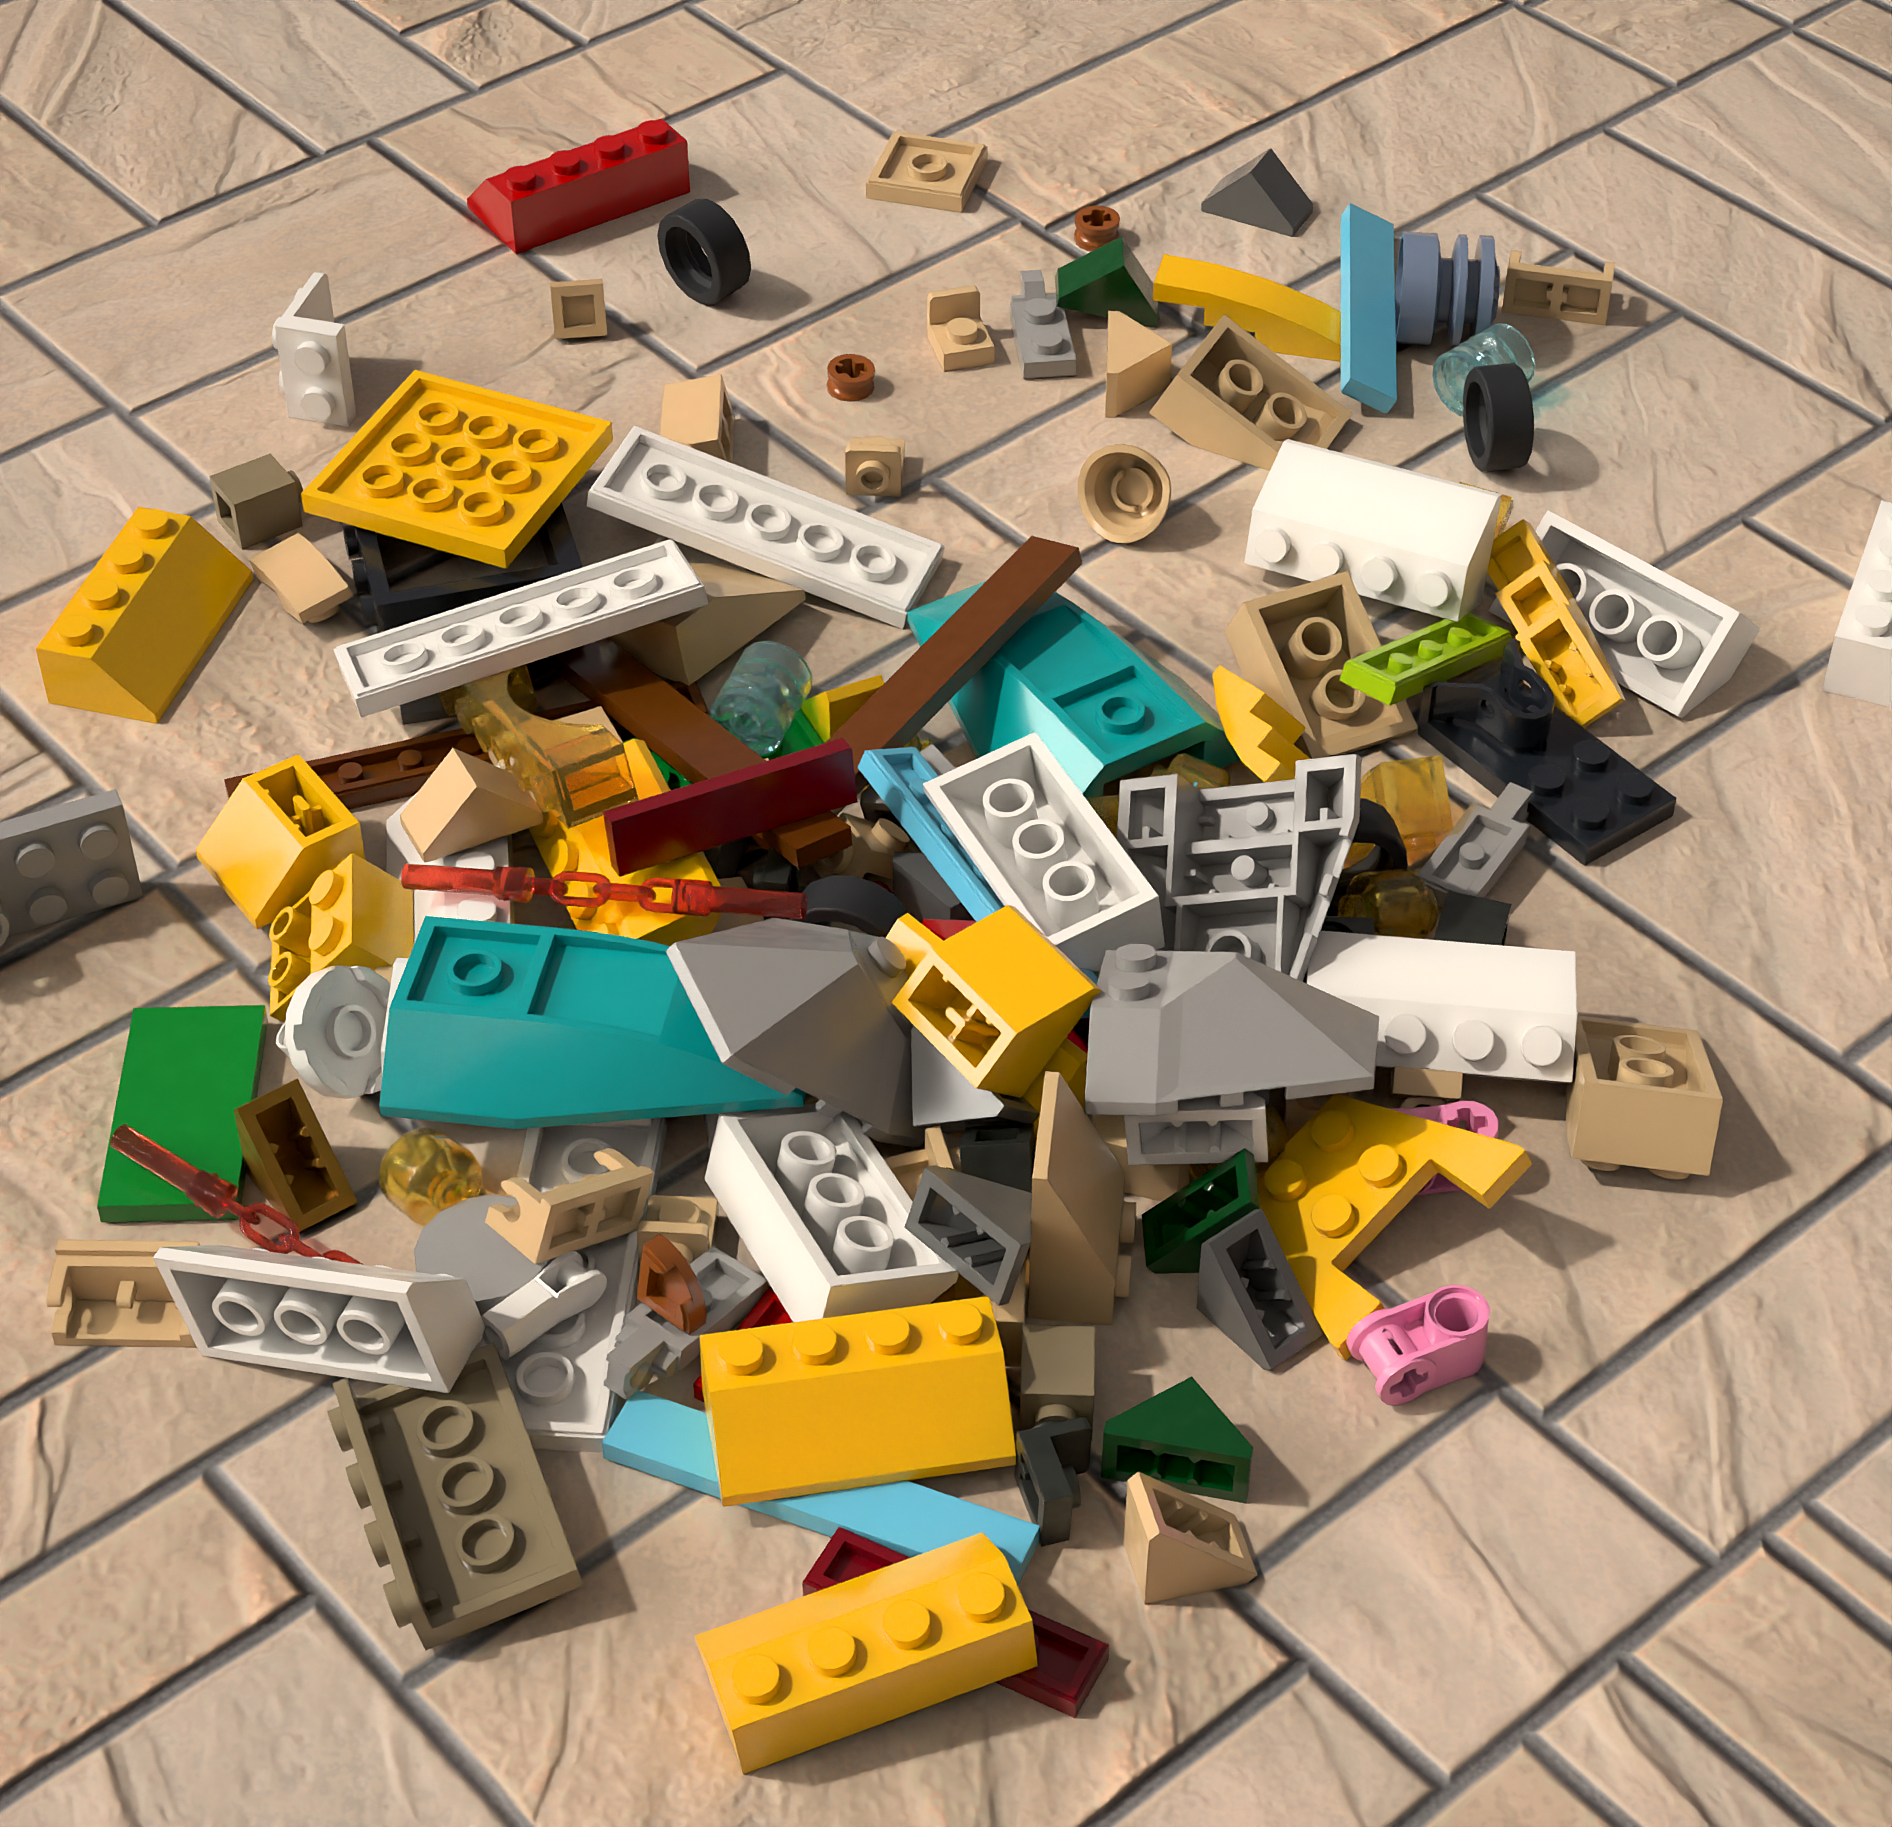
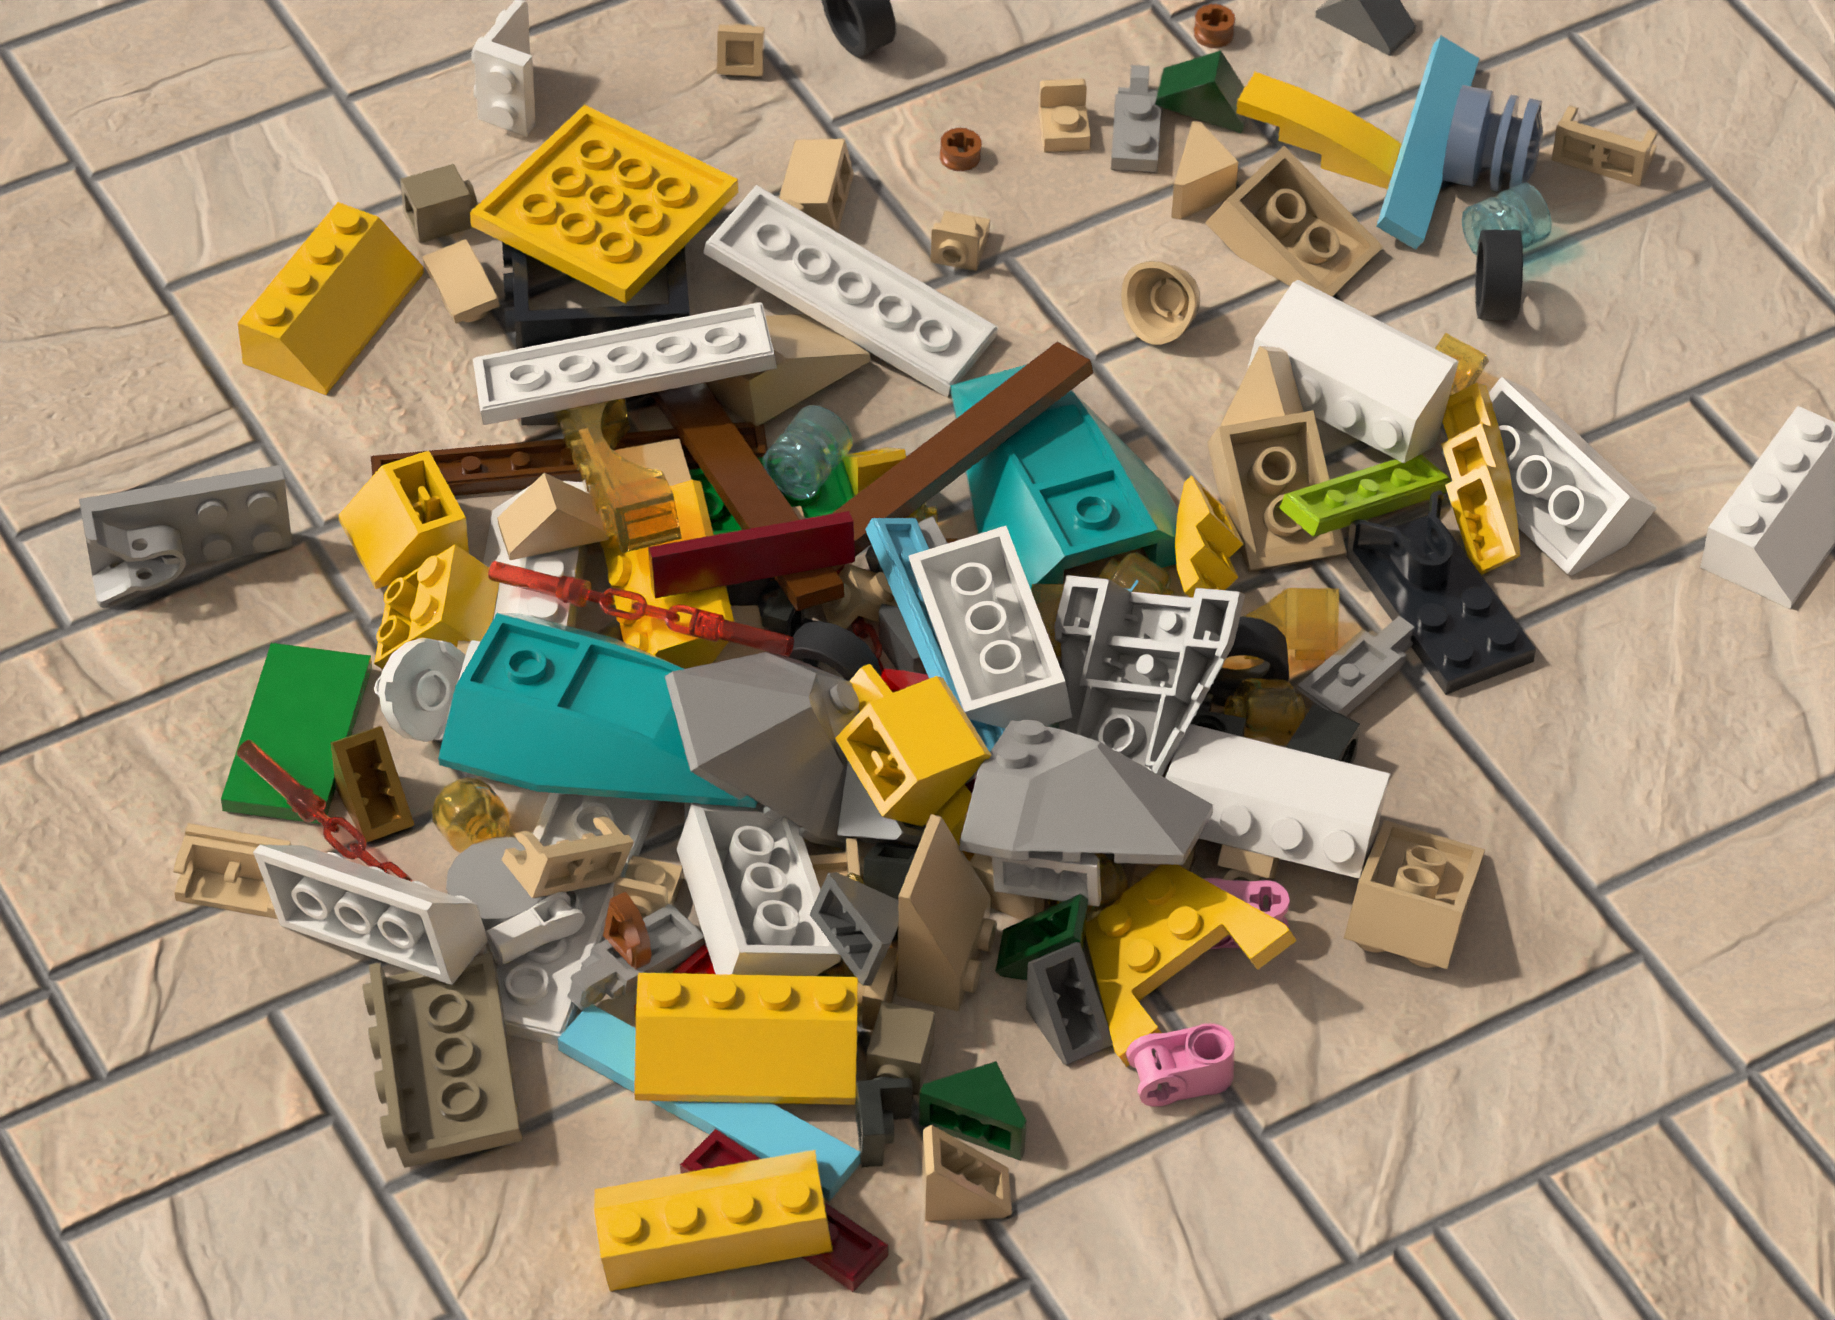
camera: 10 degrees right, 5 degrees up
(1280, 559) = (1266, 389): none -> tan slope

